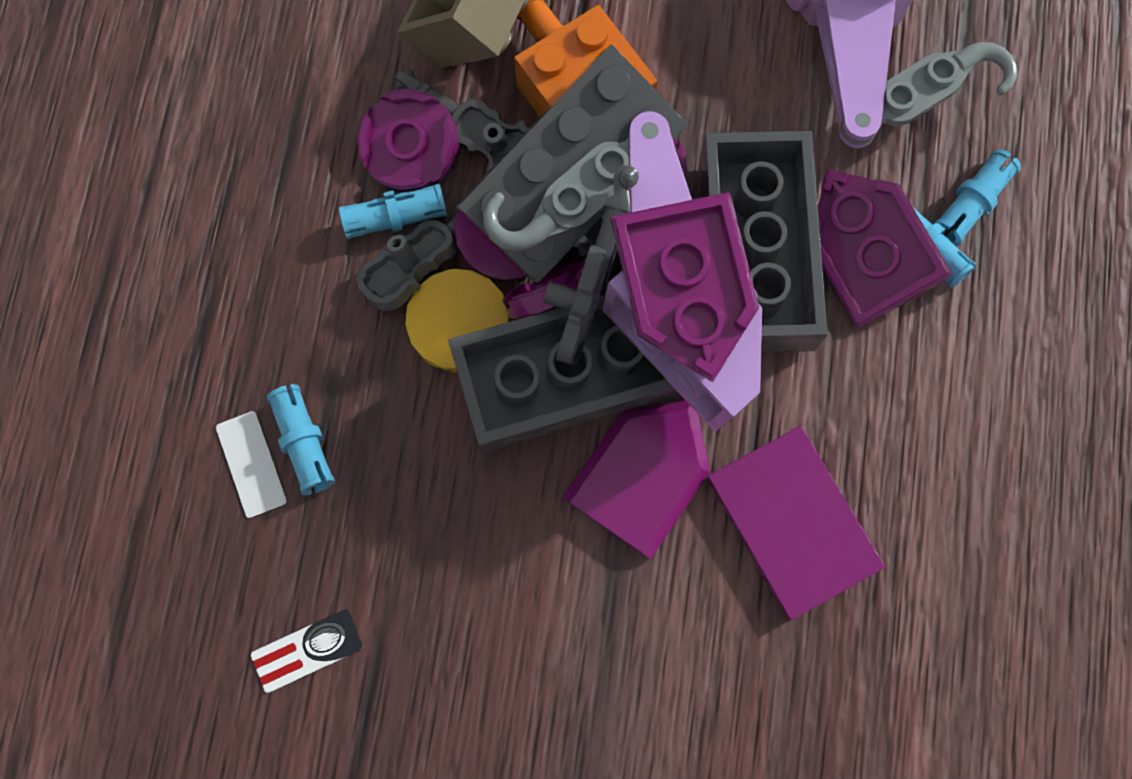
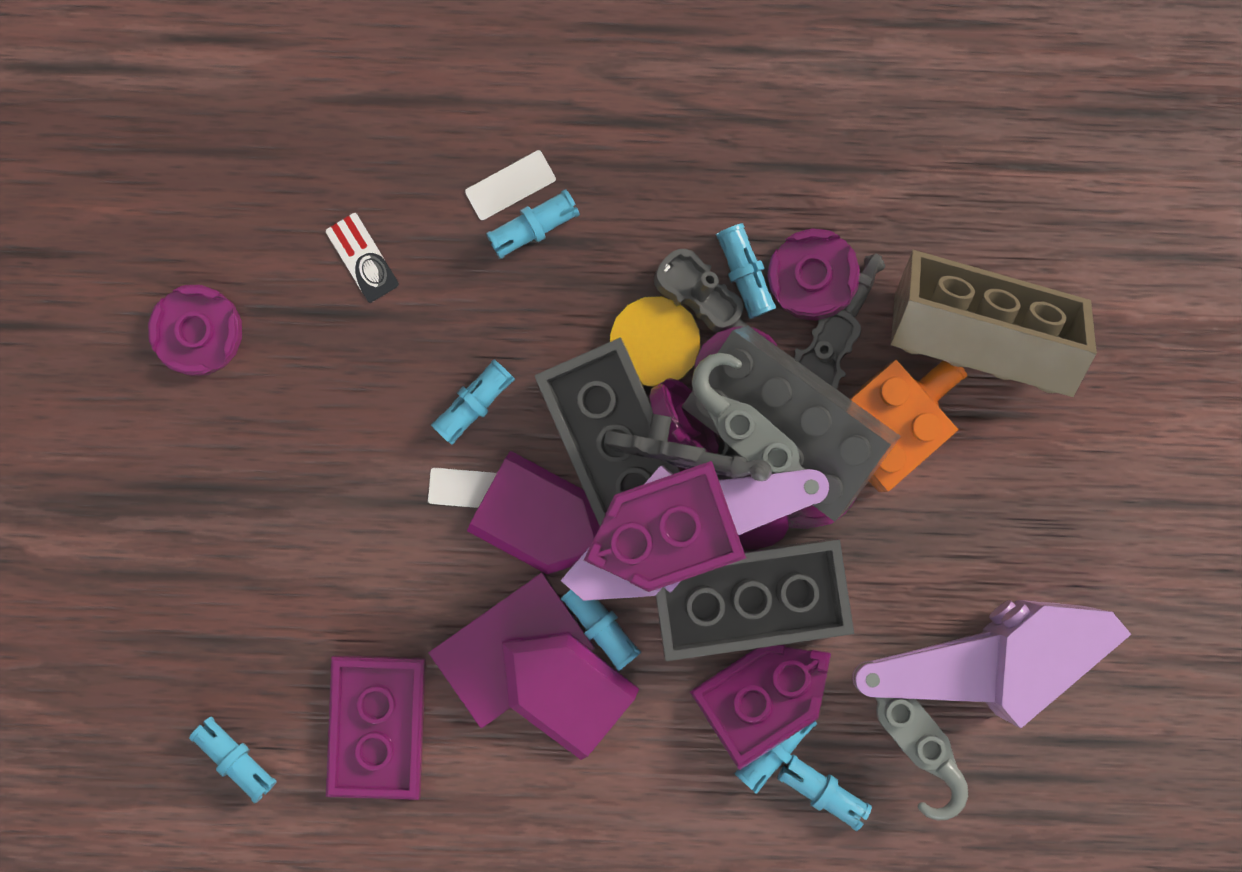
camera: 80 degrees right, 10 degrees up
(498, 533) = (473, 402): none -> medium azure pin
(597, 564) = (458, 487): none -> white sticker
(775, 414) = (603, 629): none -> medium azure pin
(848, 462) = (565, 690): none -> magenta tile
(875, 697) = (375, 727): none -> magenta tile

